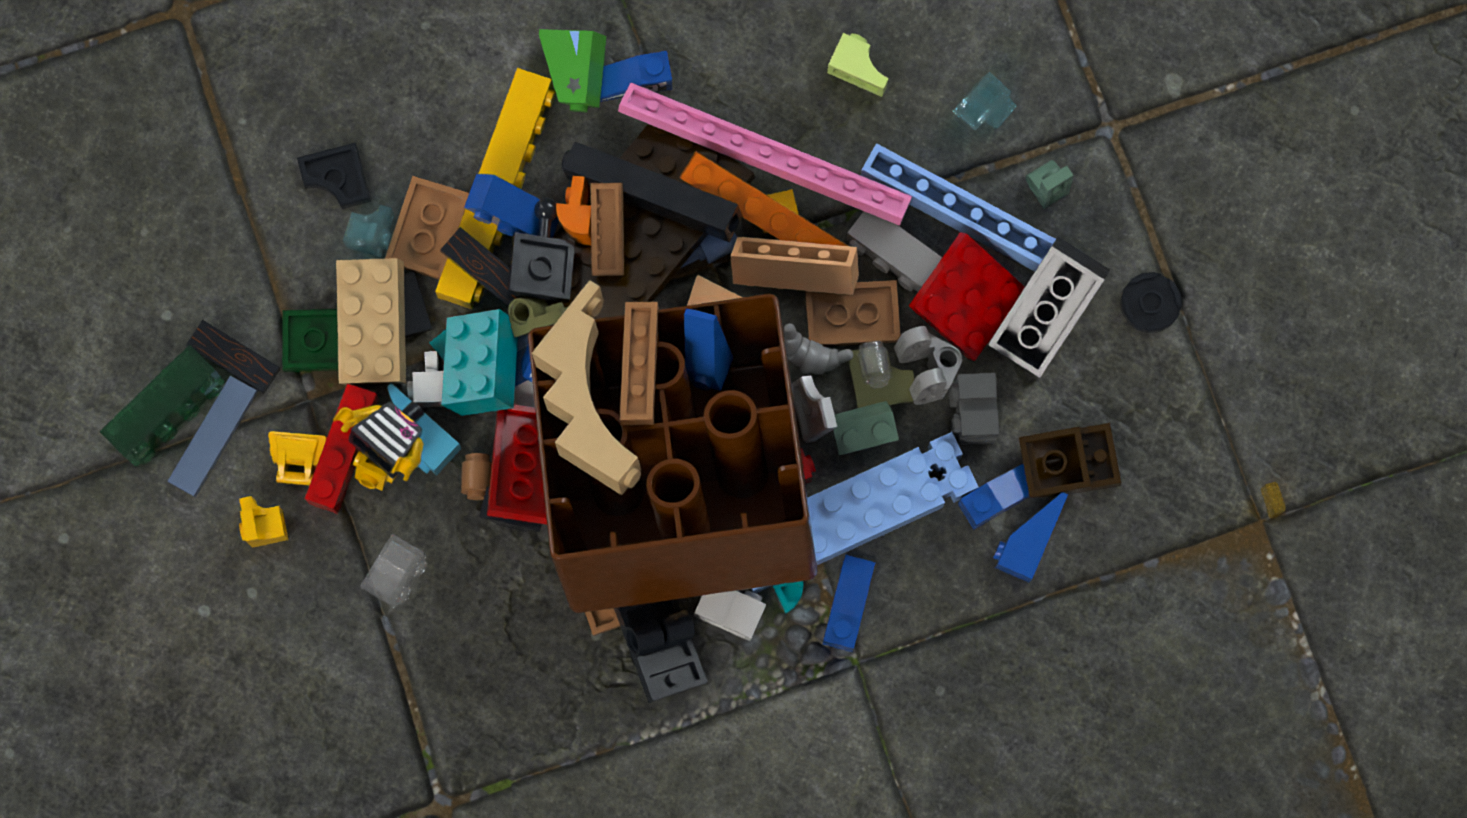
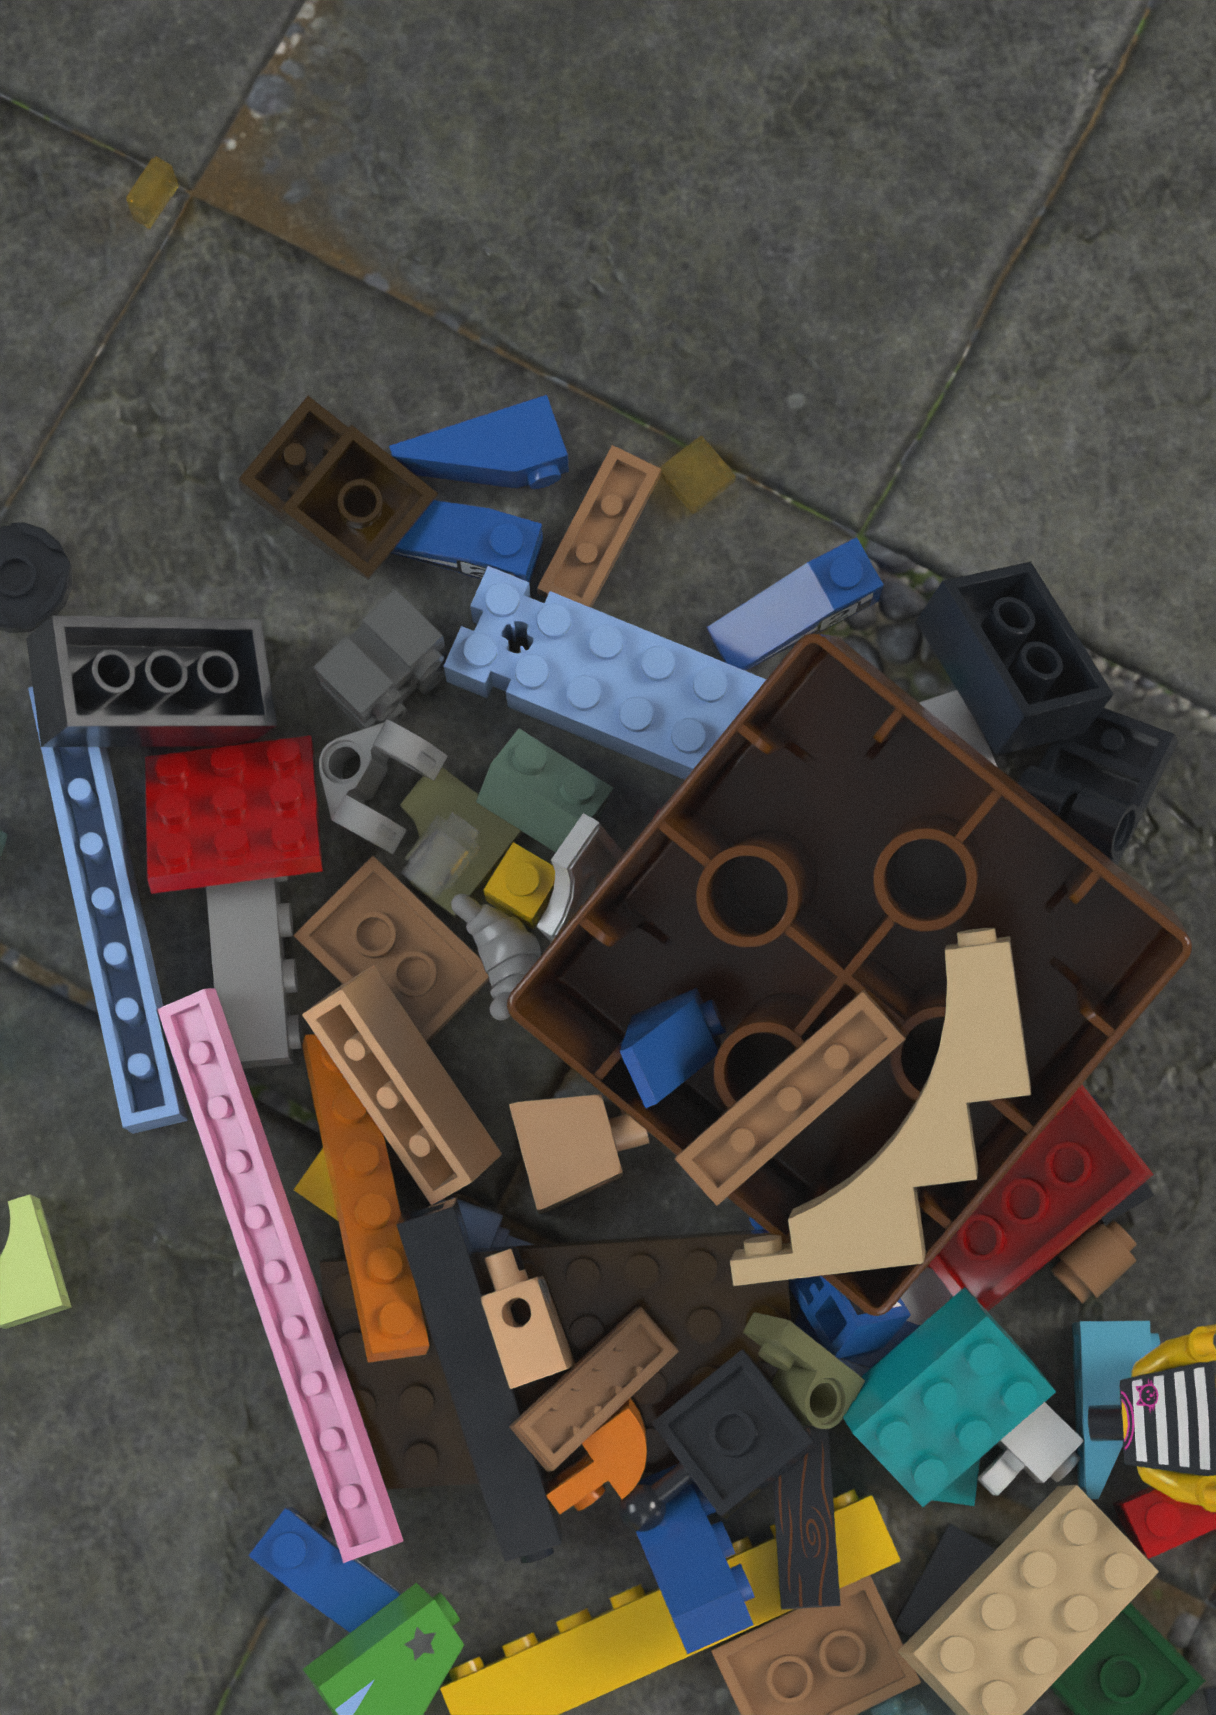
camera: 130 degrees left, 0 degrees up
(654, 222) = (528, 1349): none -> light nougat torso
(744, 664) = (1013, 657): none -> black brick
(834, 384) = (521, 885): none -> yellow brick
(944, 617) = (697, 474): none -> clear yellow tile
(955, 553) = (600, 528): none -> medium nougat plate

